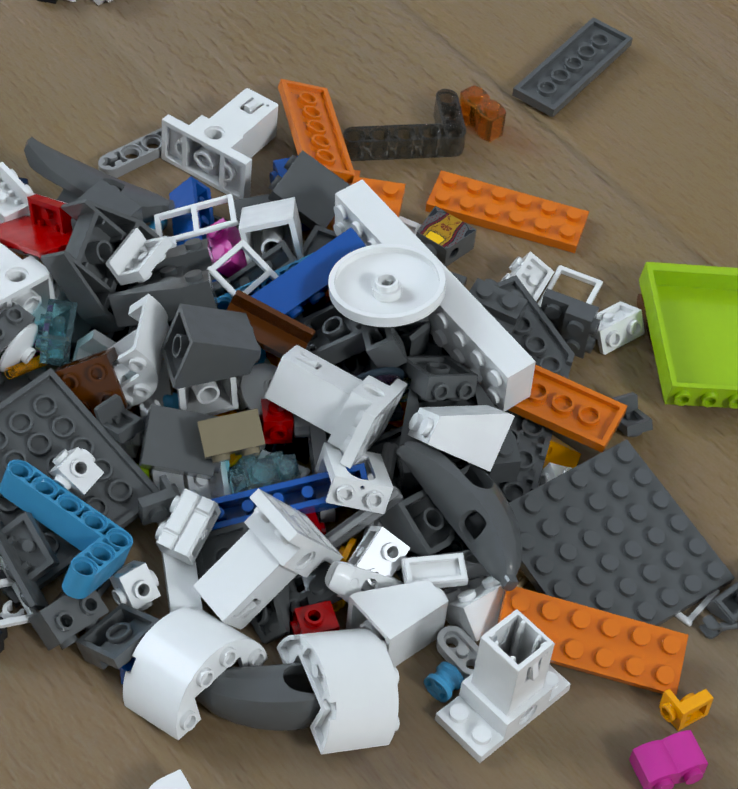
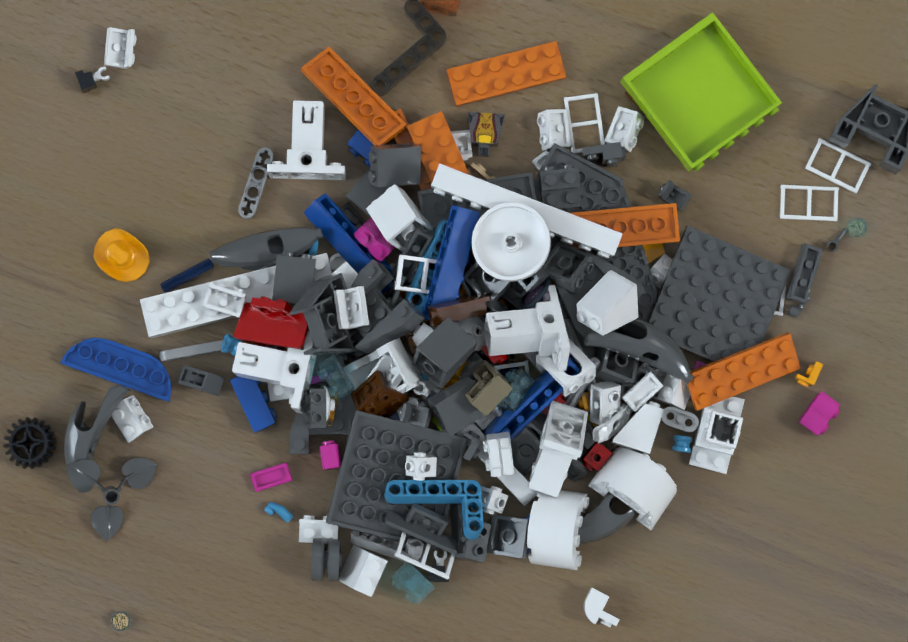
camera: 30 degrees left, 35 degrees up
(193, 208) = (337, 227): white window -> none

